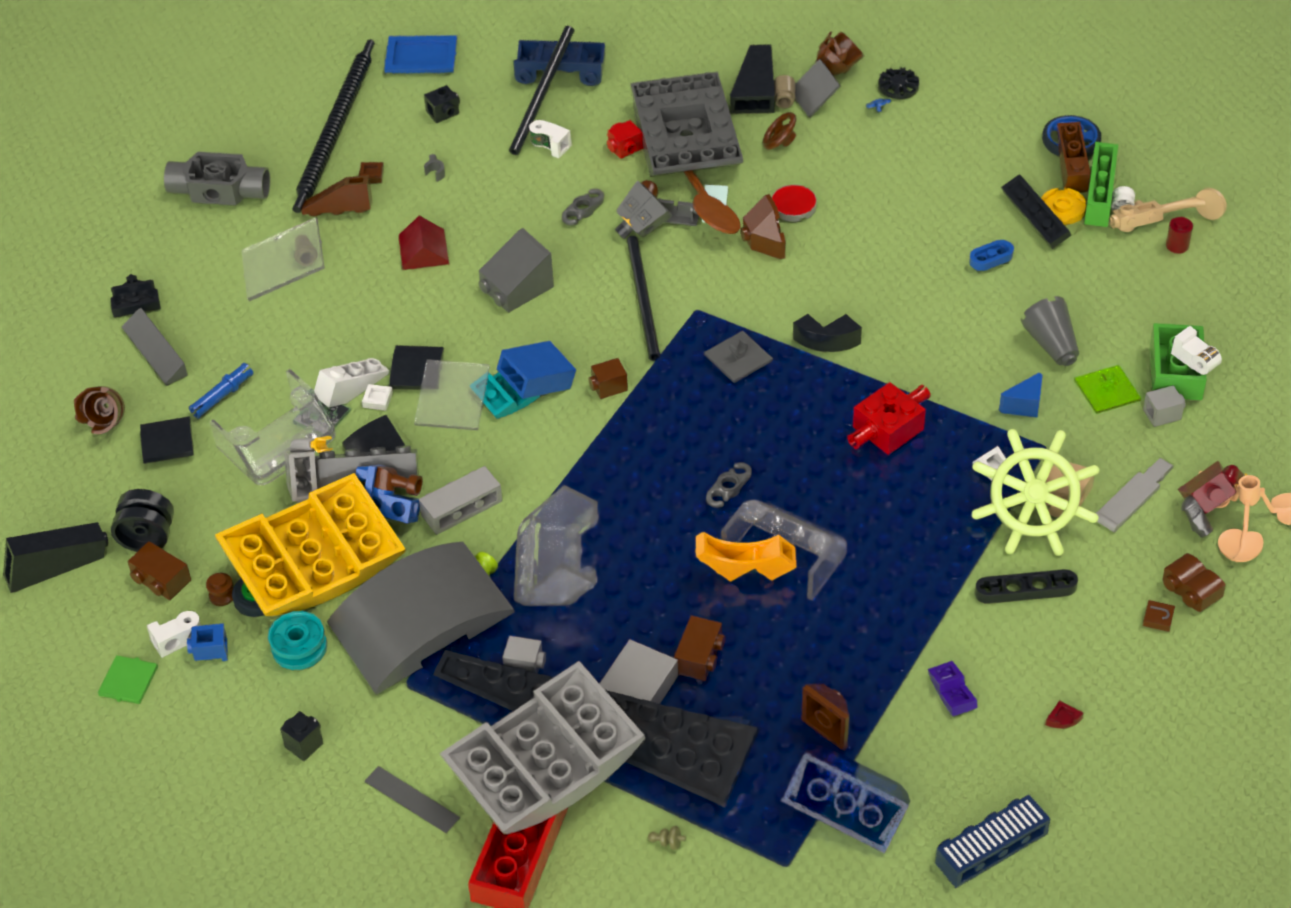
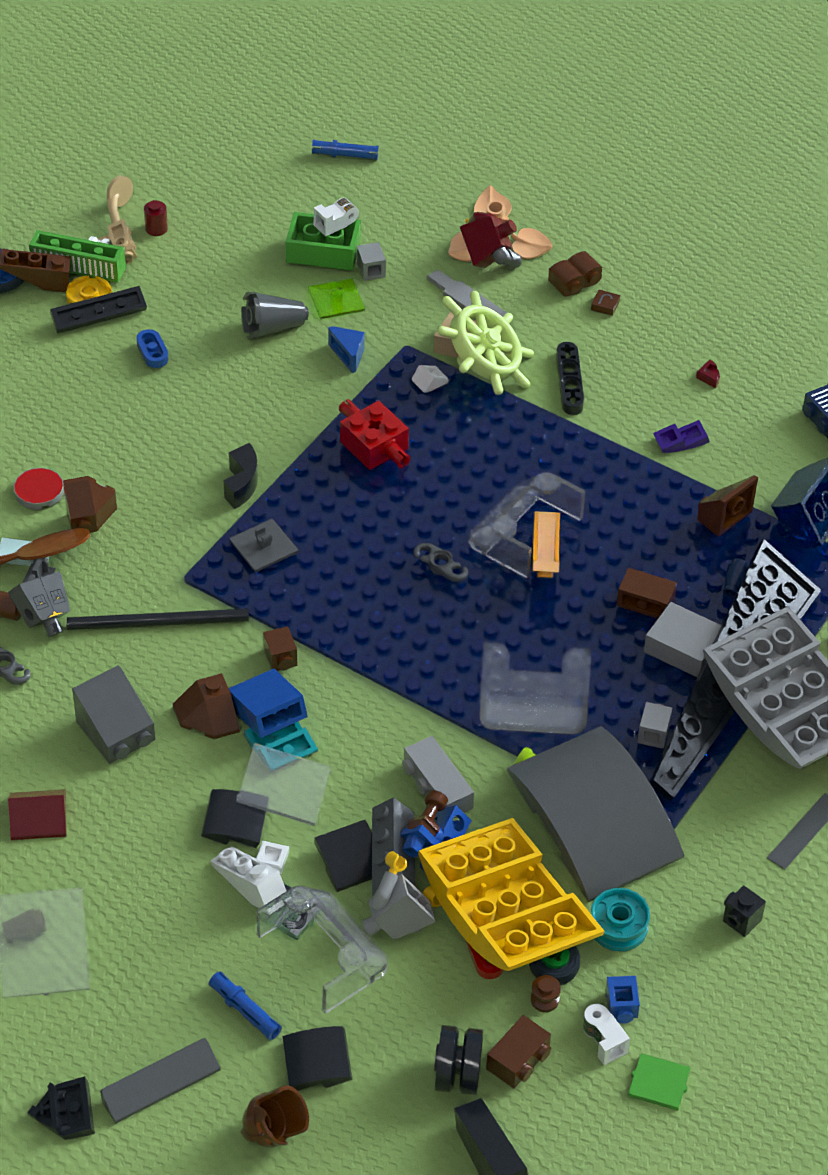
camera: 90 degrees left, 0 degrees up
(540, 331) = (207, 708): none -> reddish brown slope

